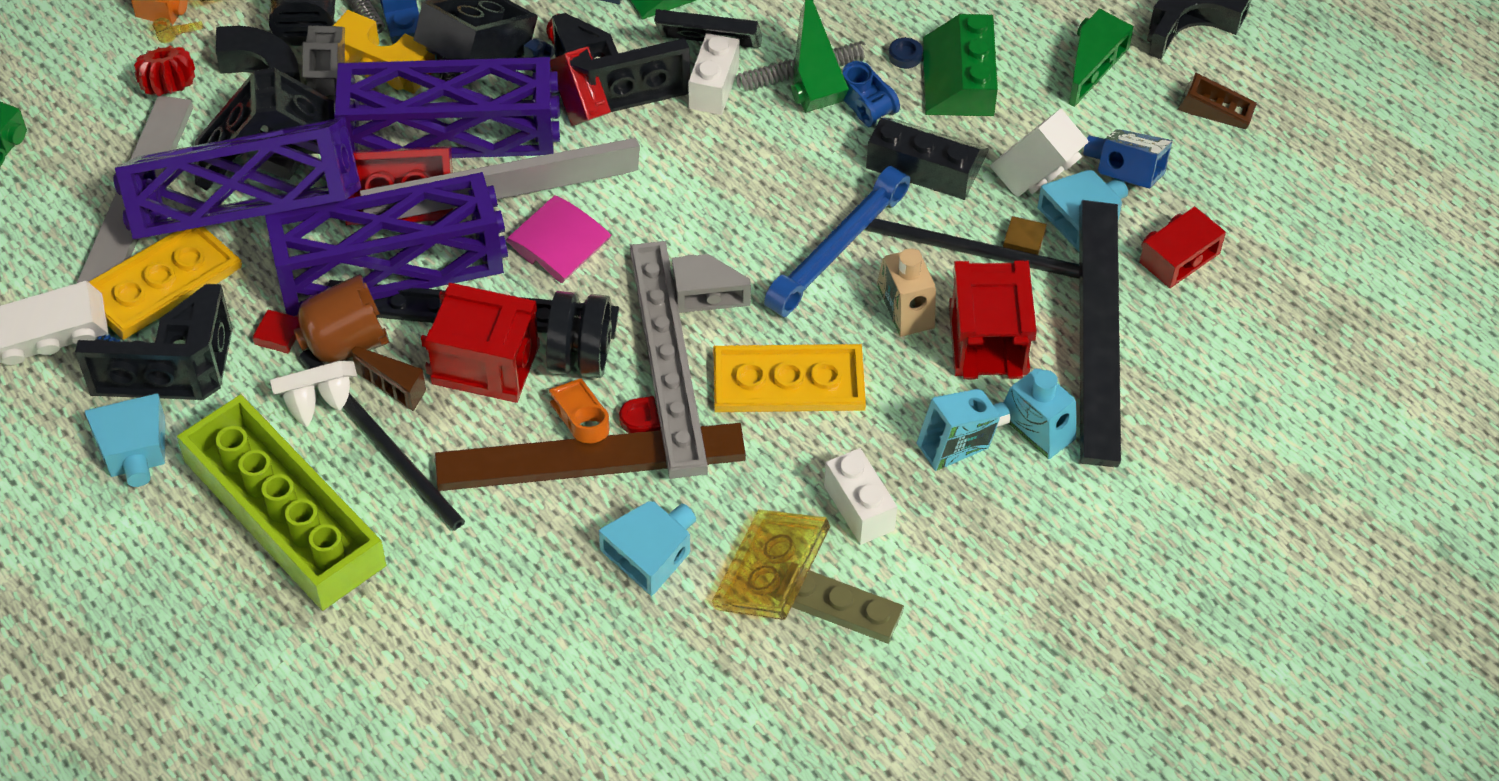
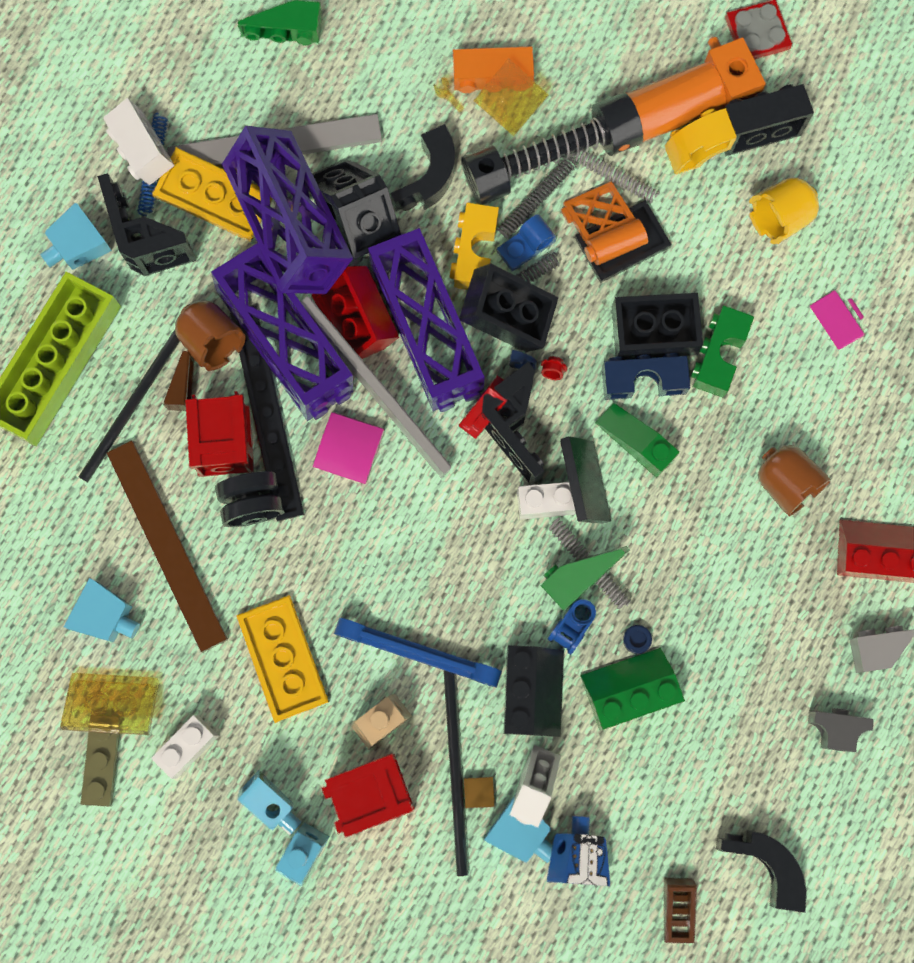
camera: 70 degrees right, 25 degrees up
(164, 70) = (395, 108): red gear -> none
(276, 331) = (200, 289): red tile -> none
(299, 388) = (155, 334): white tile -> none
(321, 57) = (442, 212): dark grey brick -> none
(578, 404) = (201, 519): orange piece -> none
(639, 415) = (212, 566): red tile -> none
(668, 361) = (265, 566): light grey tile -> none
(708, 284) = (340, 568): light grey slope -> none
(1099, 334) = (394, 879): black tile -> none
(1100, 45) = (698, 794): green slope -> none
(1181, 246) = (507, 921): red brick -> none

